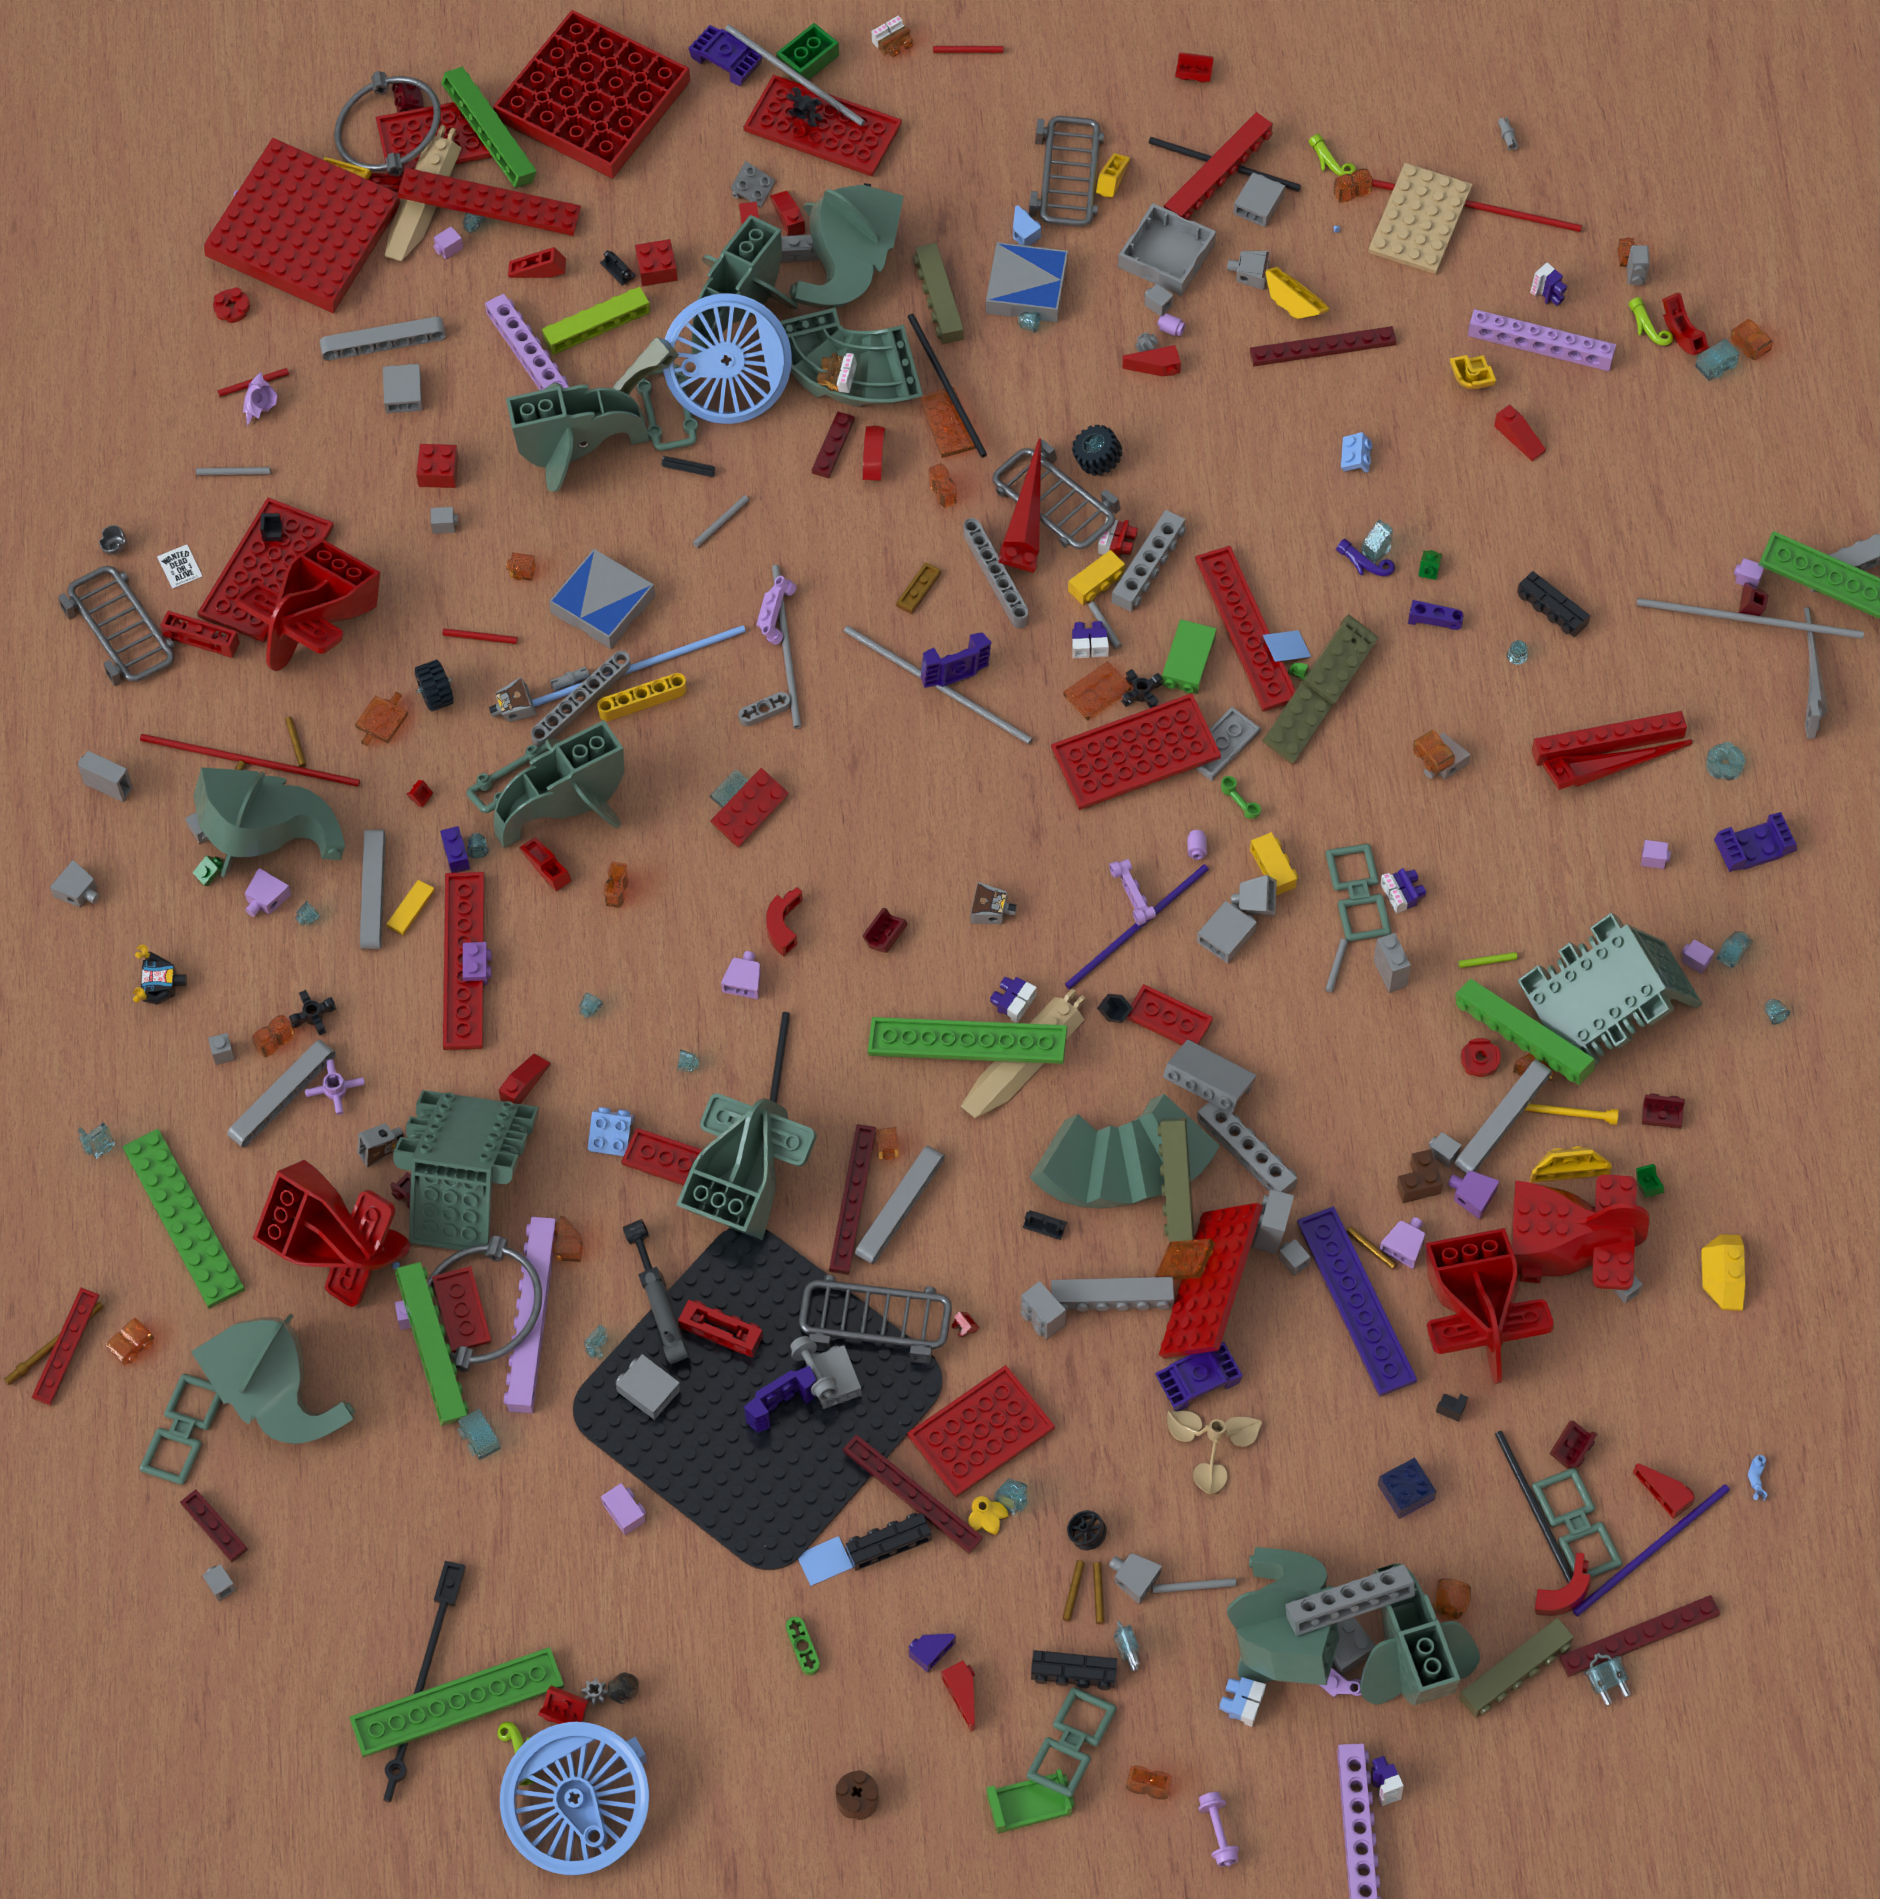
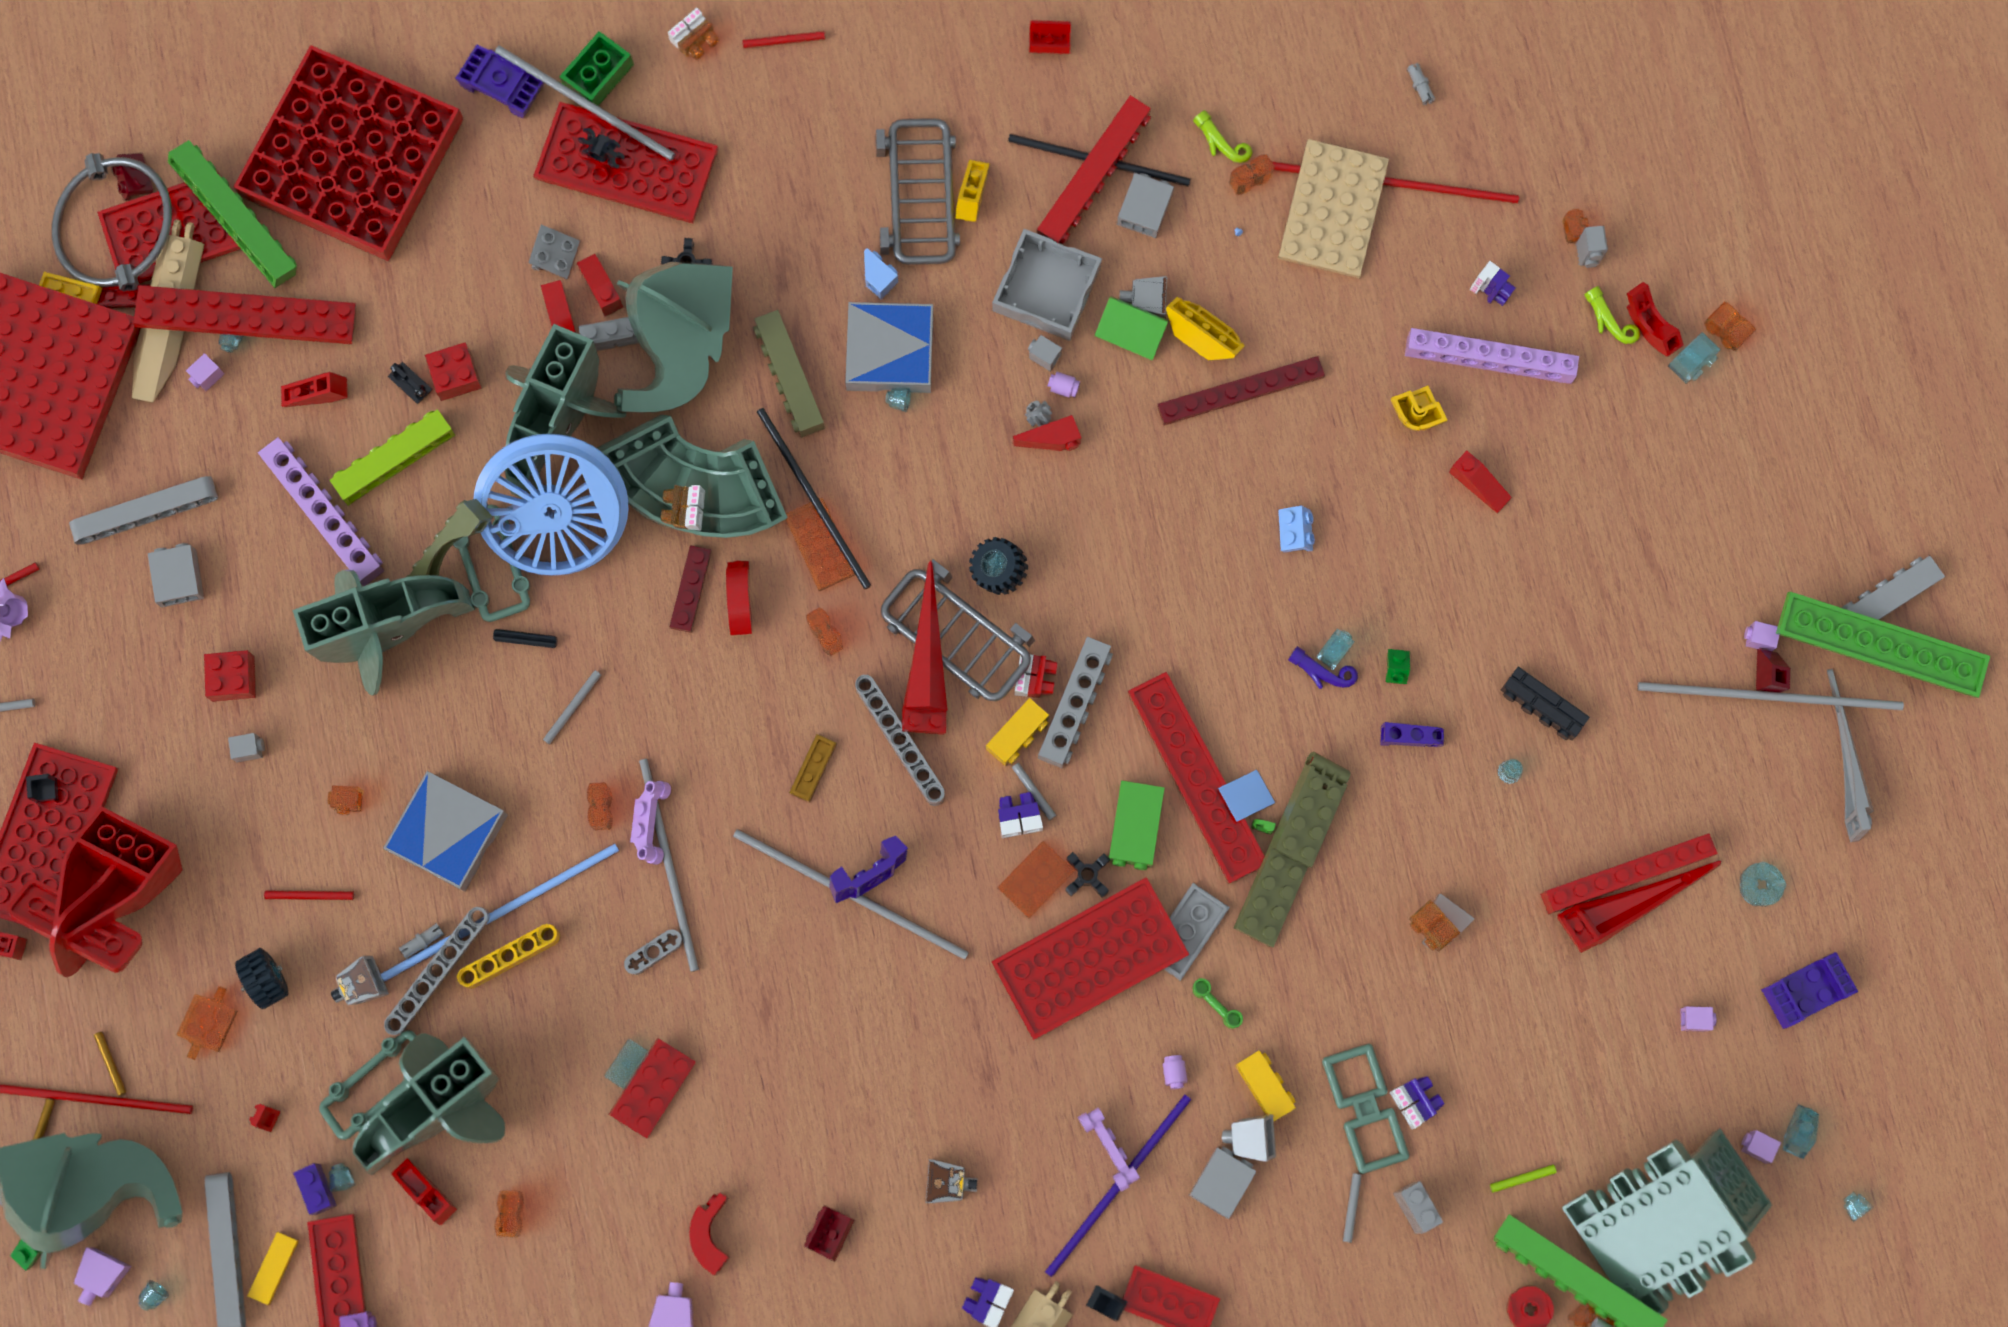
camera: 10 degrees left, 15 degrees up
(734, 594) = (599, 811): none -> clear orange brick
(1234, 287) = (1131, 328): none -> bright green tile

